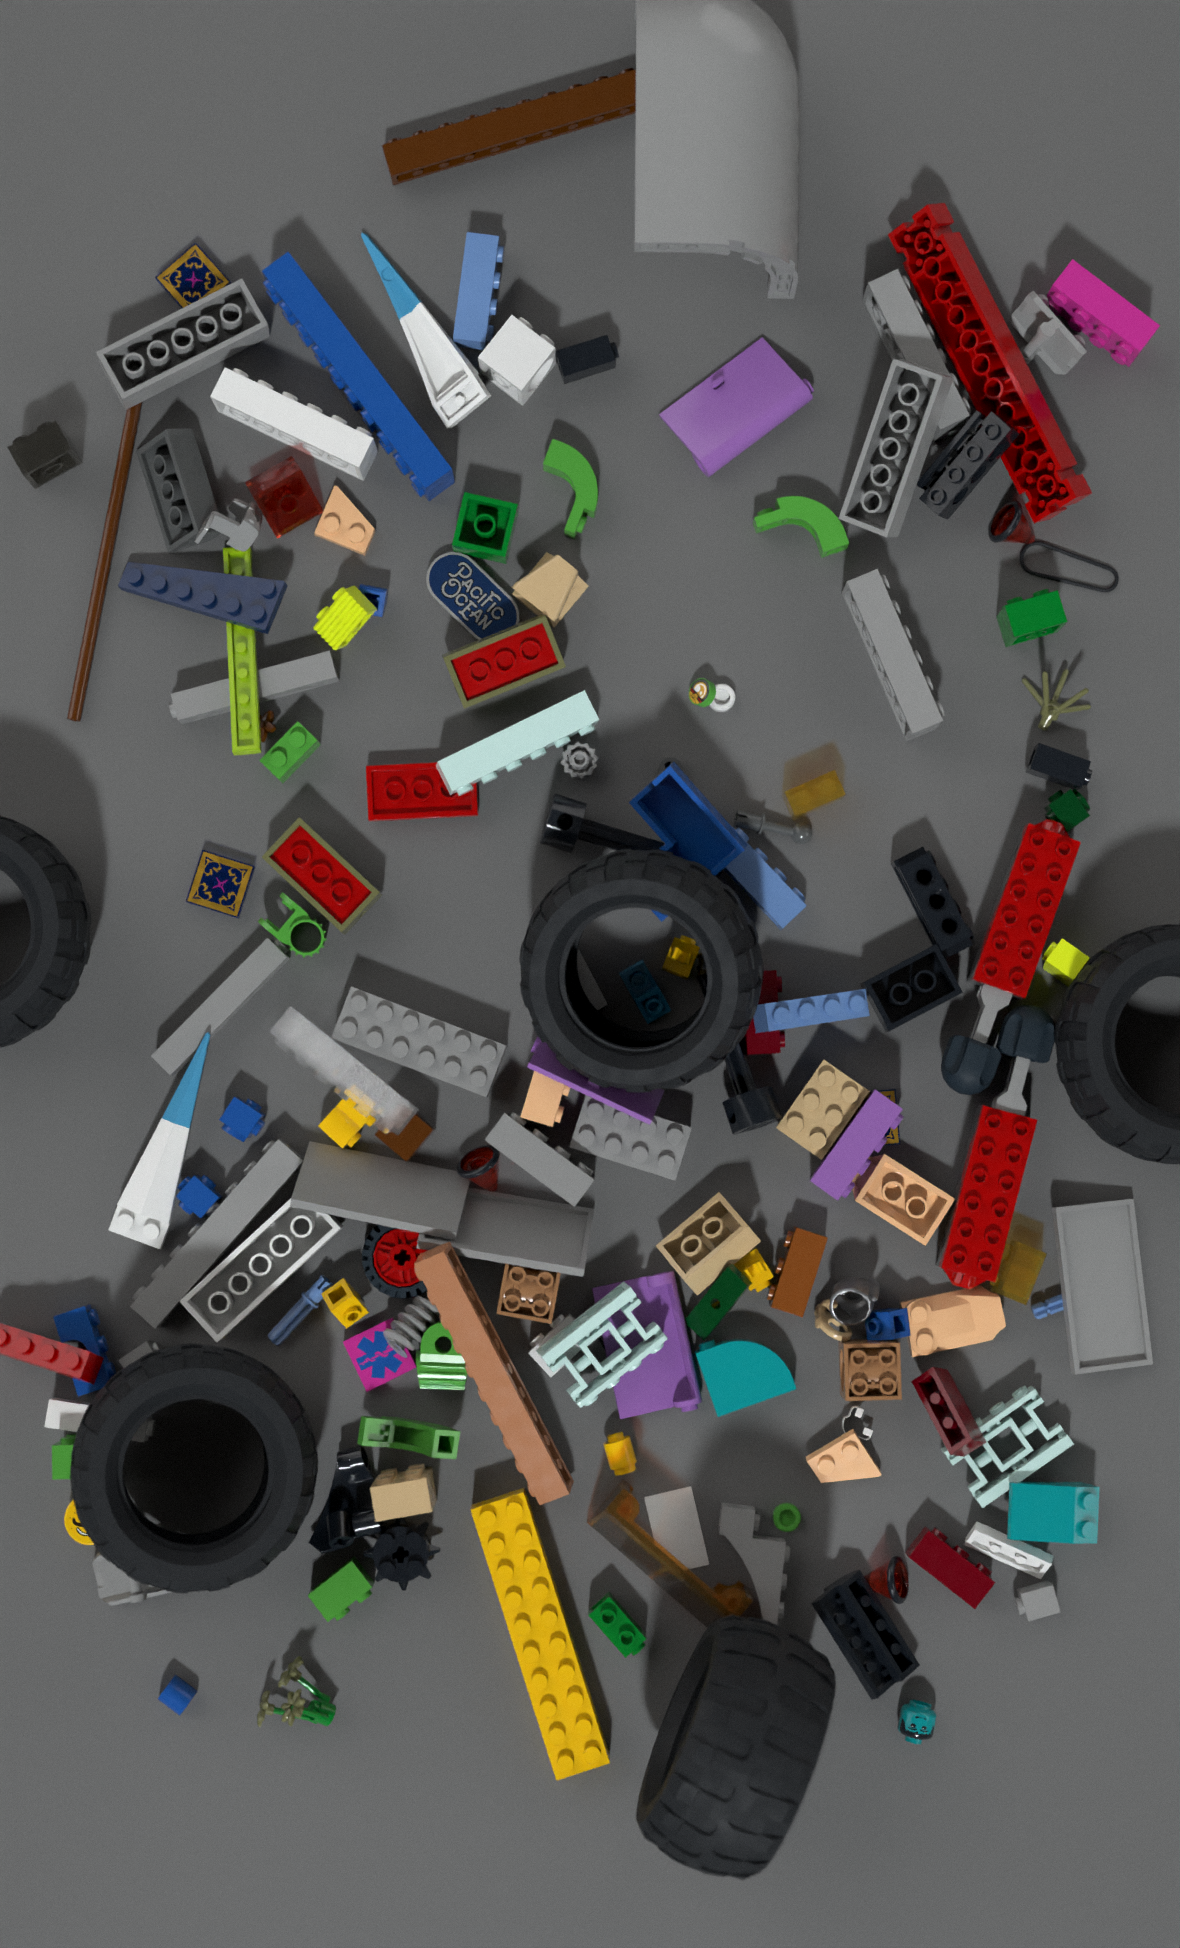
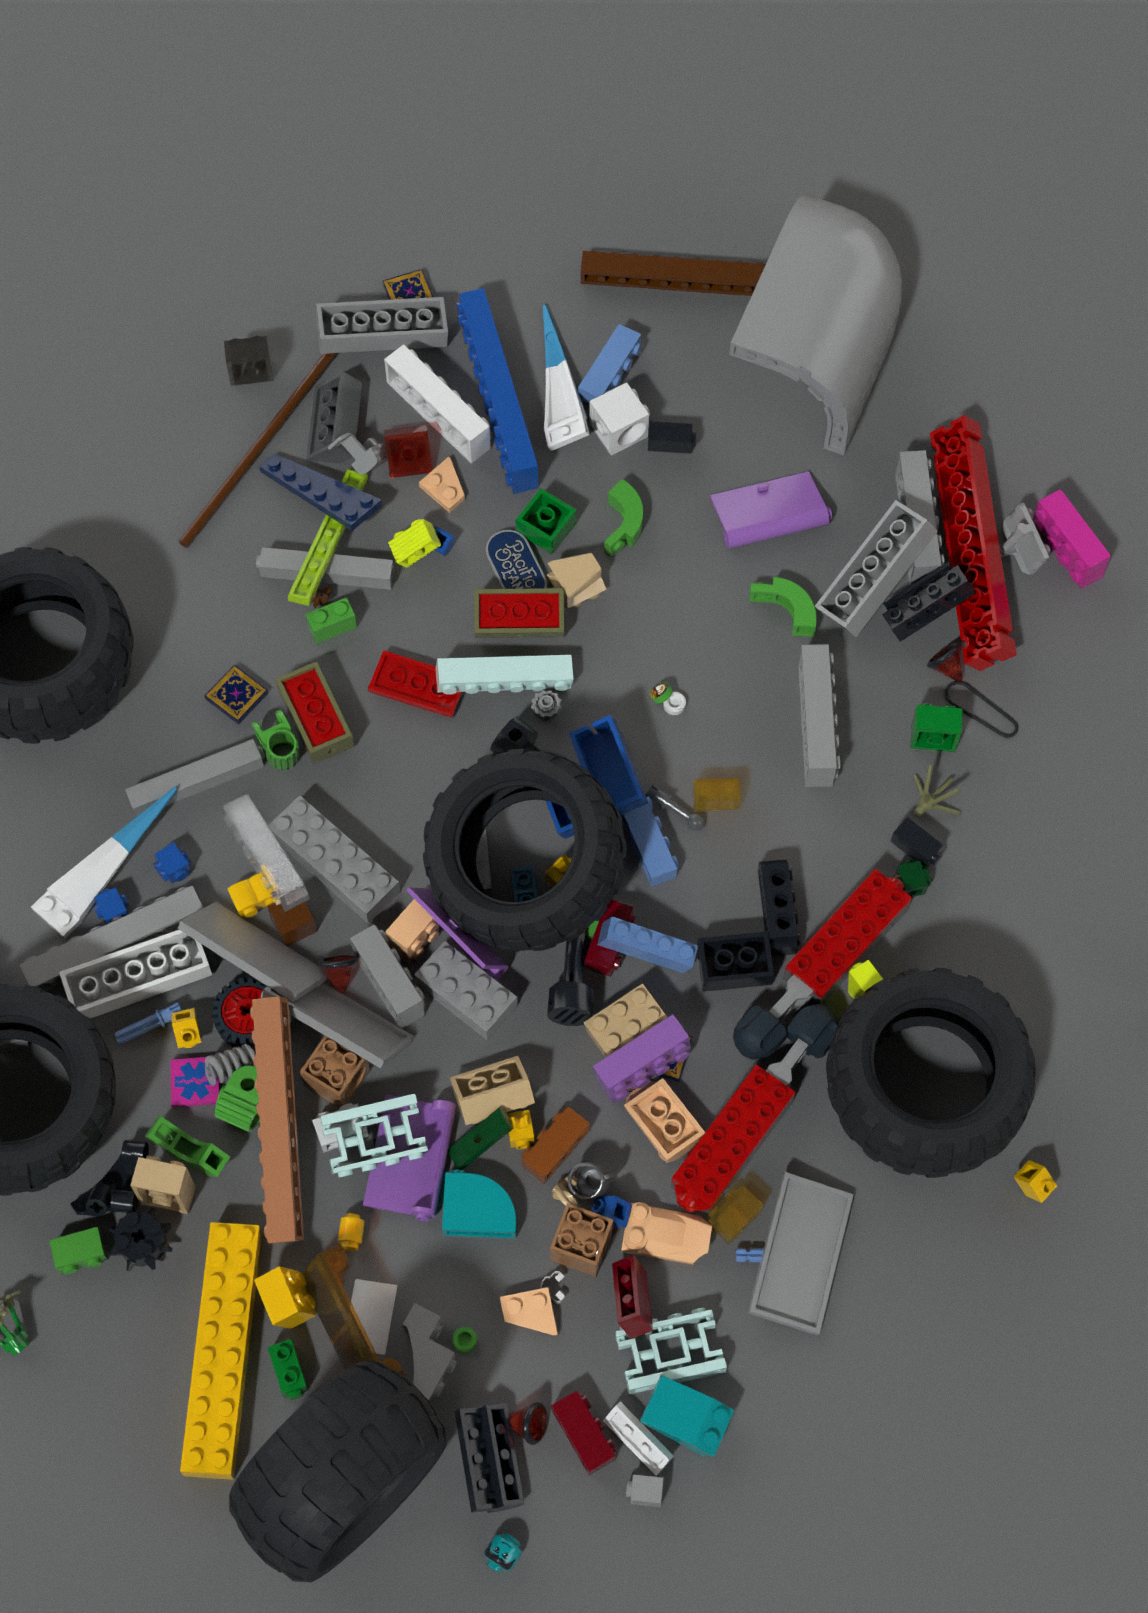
camera: 20 degrees right, 20 degrees down
(585, 1557) = (286, 1297): none -> yellow brick

